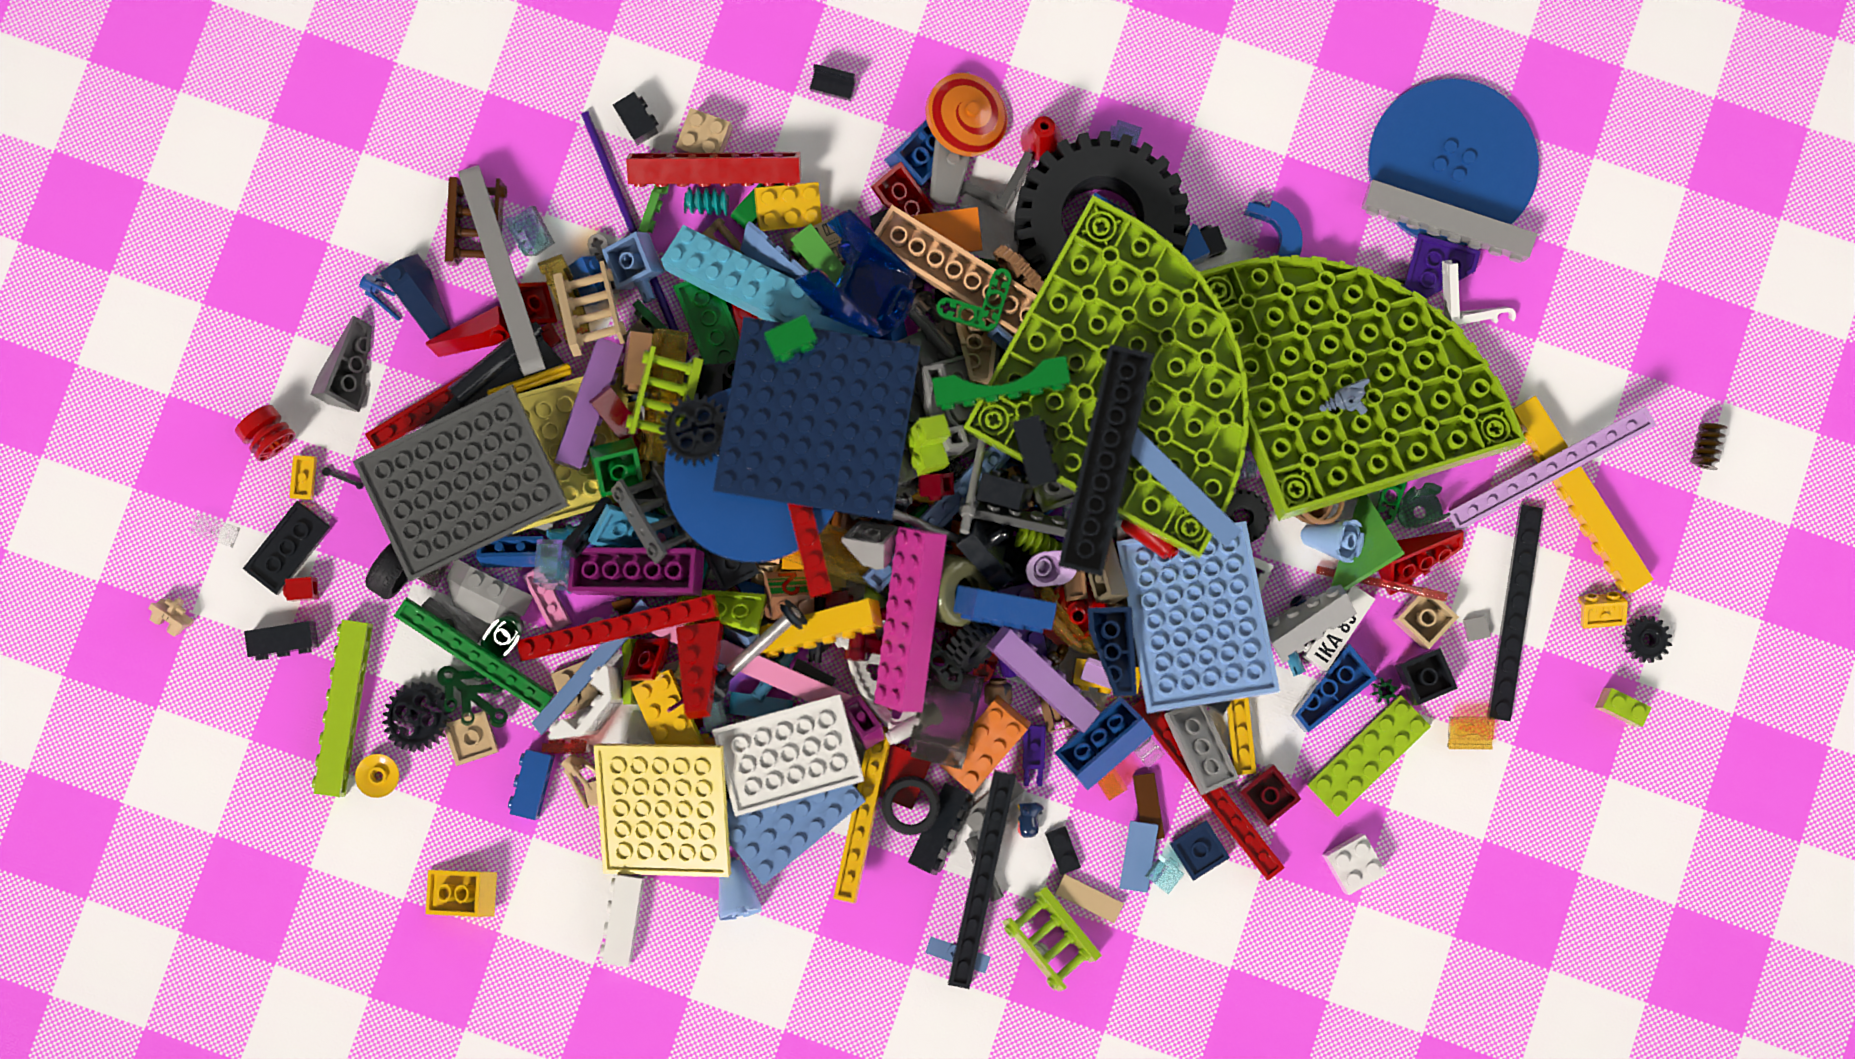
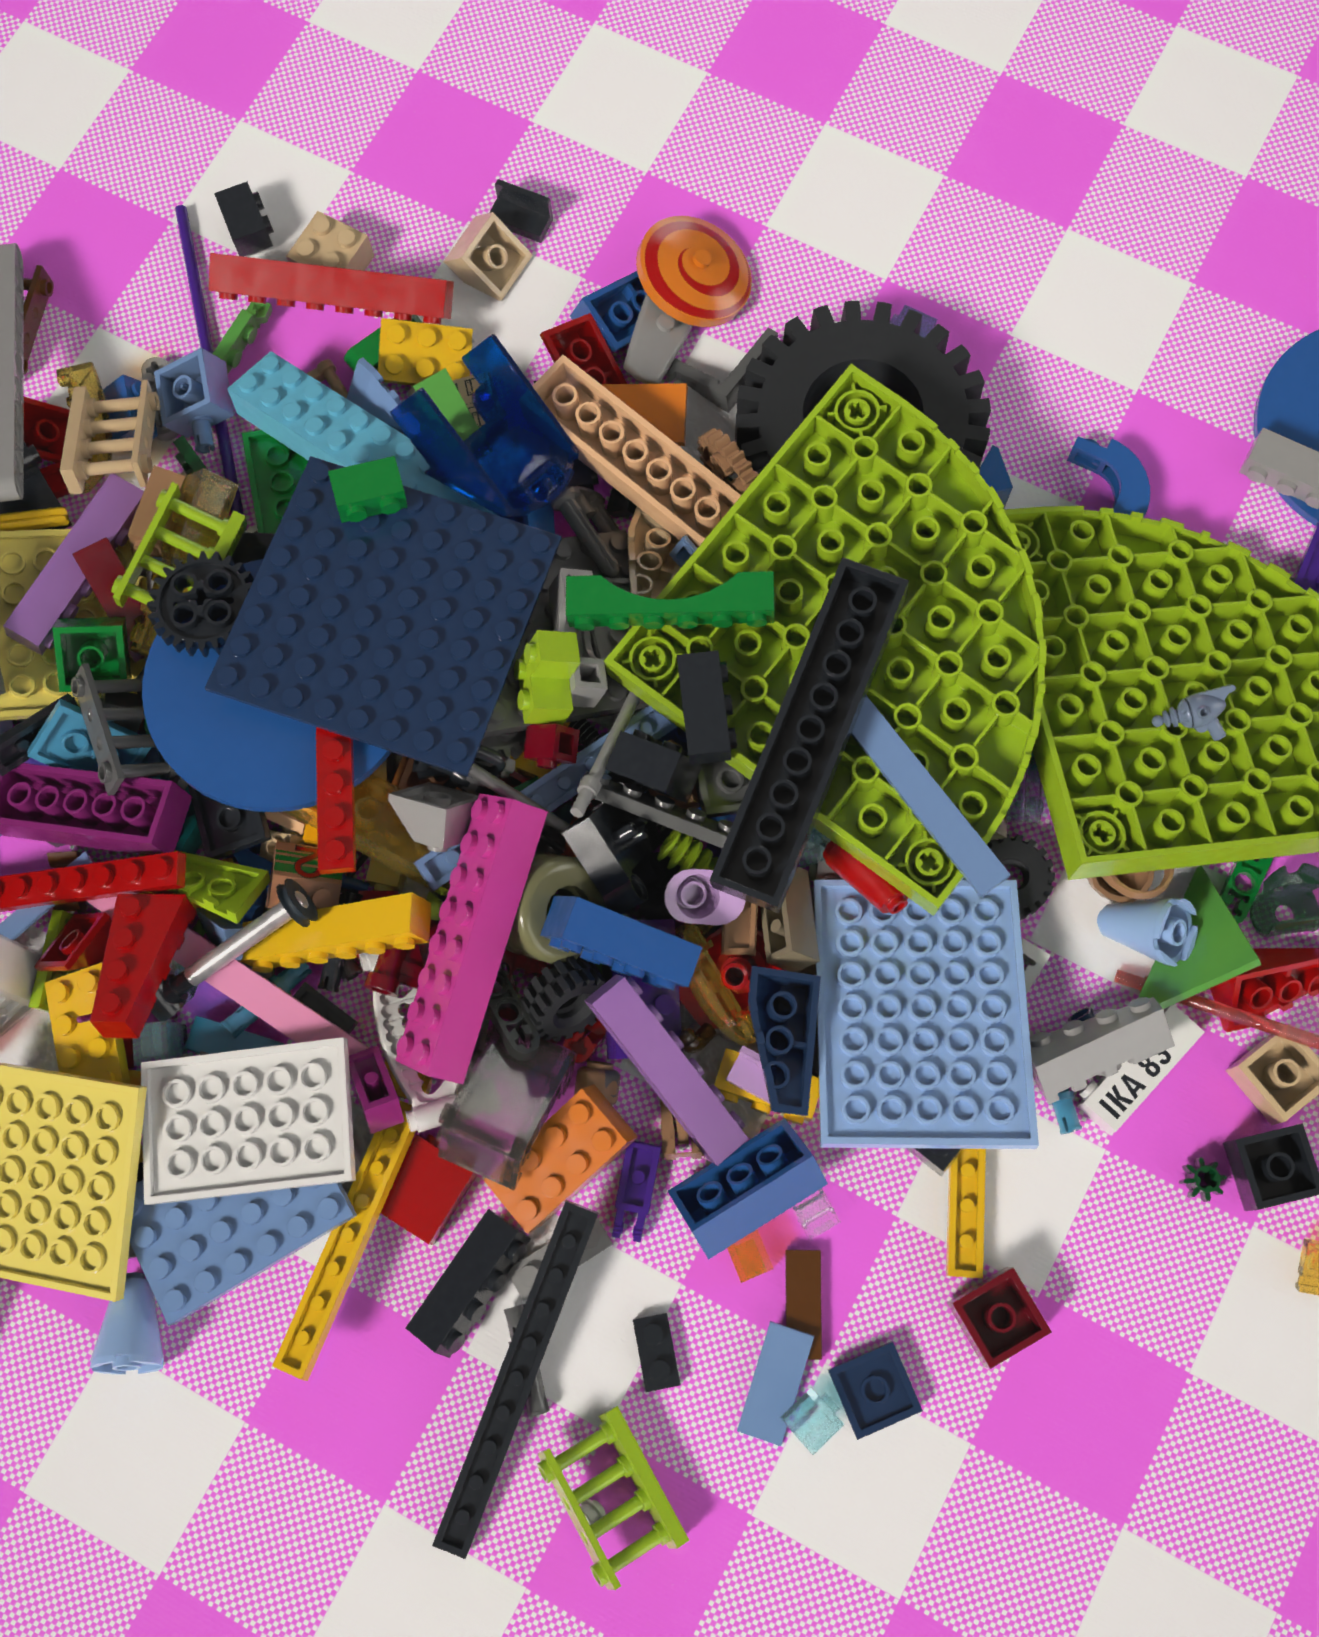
camera: 15 degrees right, 10 degrees down
(530, 232) = (67, 339): clear light blue bracket -> none
(706, 201) = (314, 336): teal piece -> none
(816, 121) = (488, 256): none -> tan slope
(910, 829) = (387, 1235): black tyre -> none
(946, 951) = (440, 1486): medium blue piece -> none
(979, 313) = (661, 512): green beam -> none
(1027, 821) = (608, 1294): dark blue animal -> none
(1040, 136) = (793, 299): red cone -> none
(1089, 898) = (686, 1439): tan tile -> none
(1201, 747) = (900, 1221): light grey plate -> none
(1213, 240) = (1024, 488): black brick -> none
(1217, 800) = (909, 1300): red plate -> none
(1333, 689) = (1123, 1162): blue wedge -> none
(1354, 864) = (1125, 1457): white brick -> none
(1368, 755) = (1166, 1281): lime plate -> none

